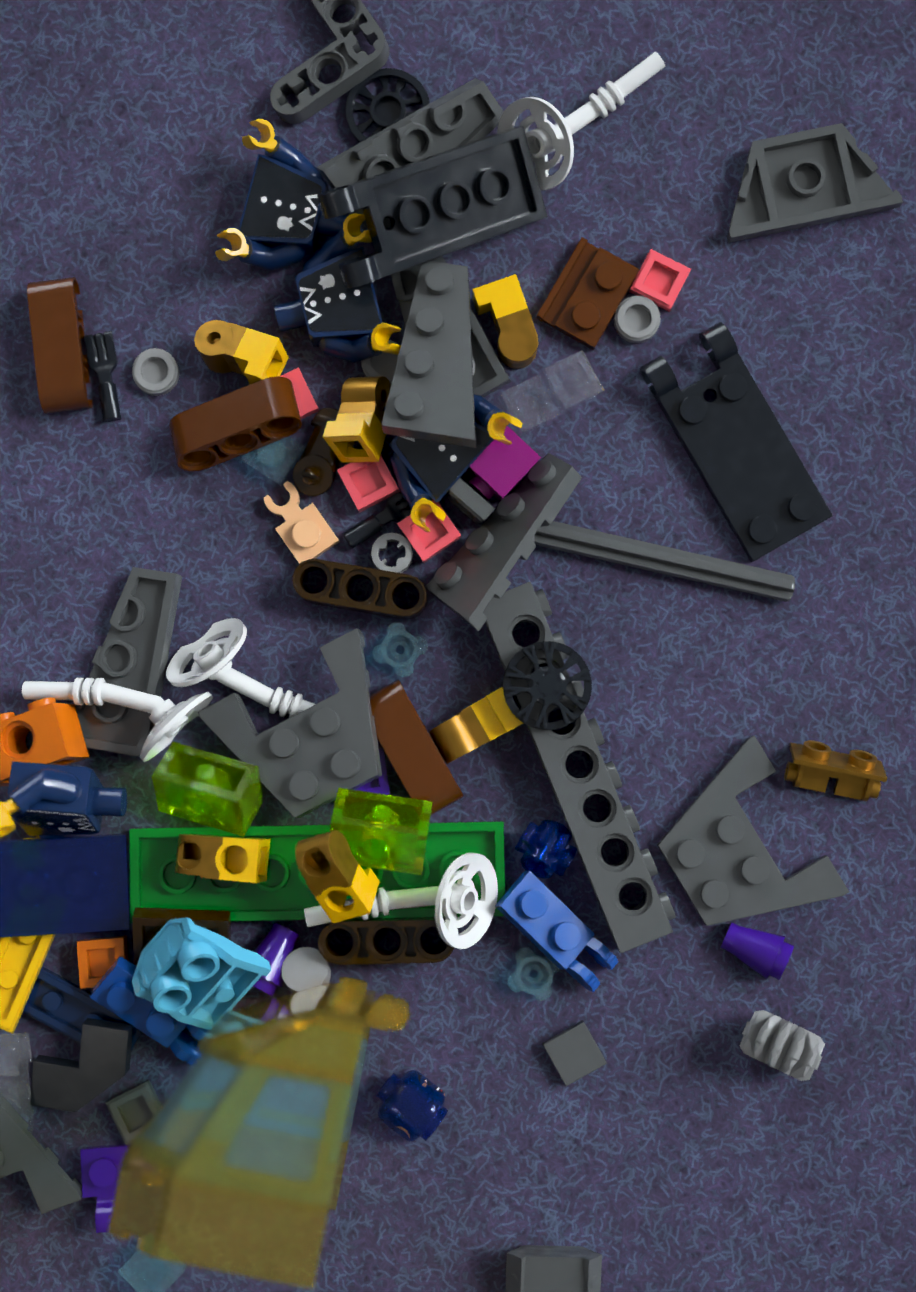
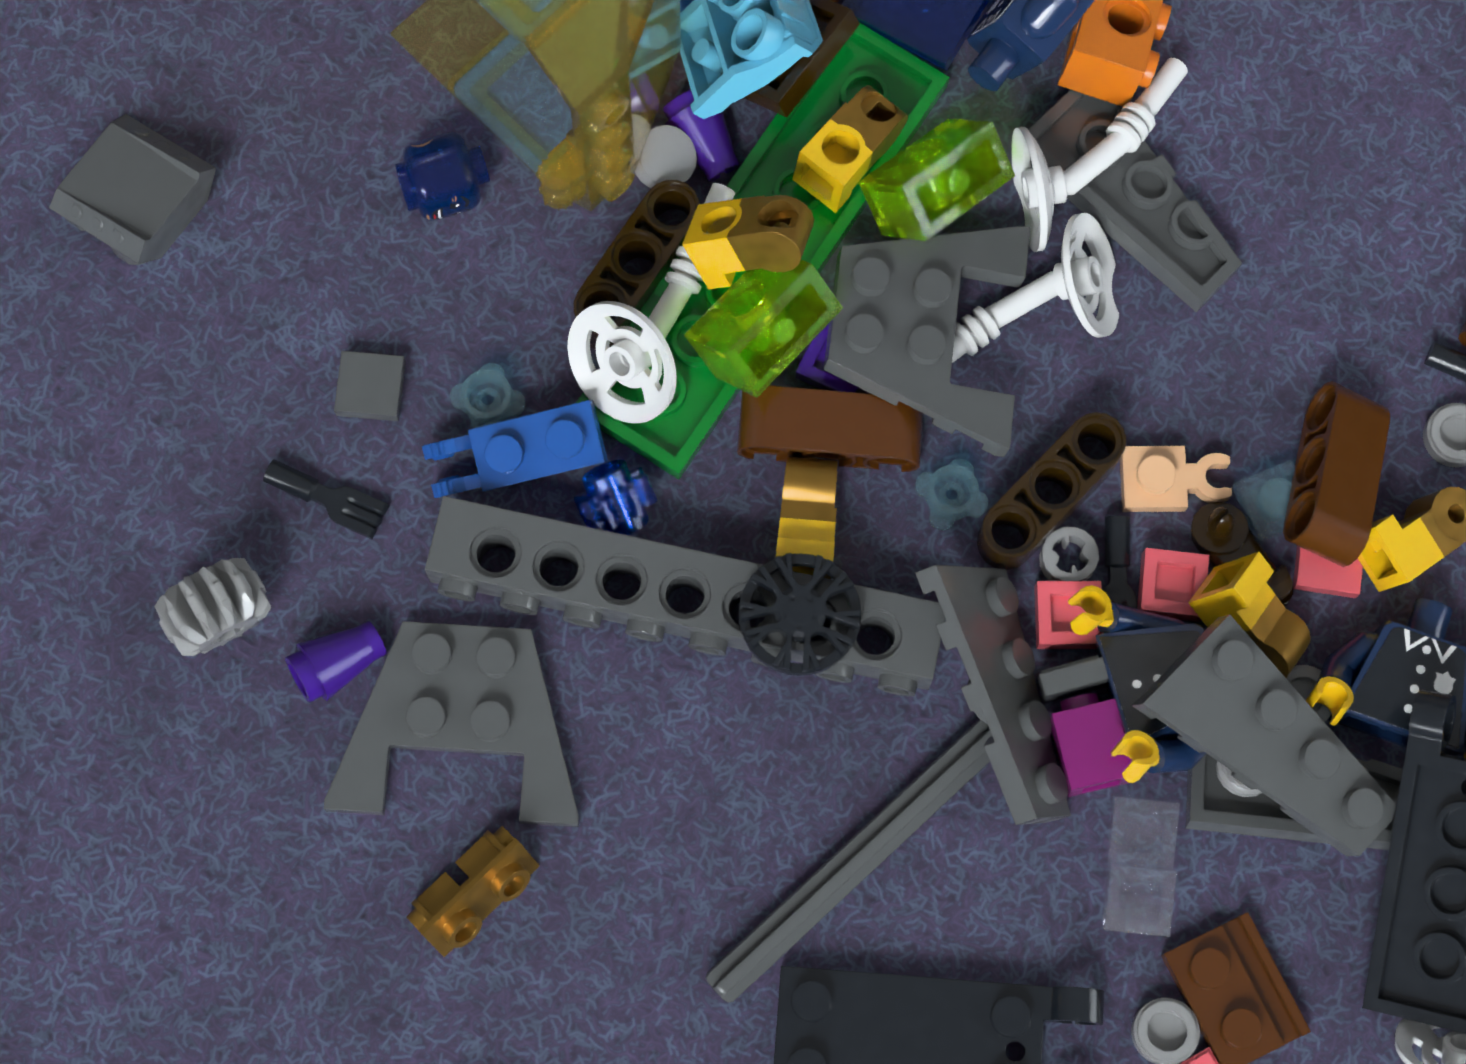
camera: 120 degrees right, 10 degrees down
(511, 318) = (1238, 870): leg -> none
(659, 1014) = (344, 504): none -> black piece

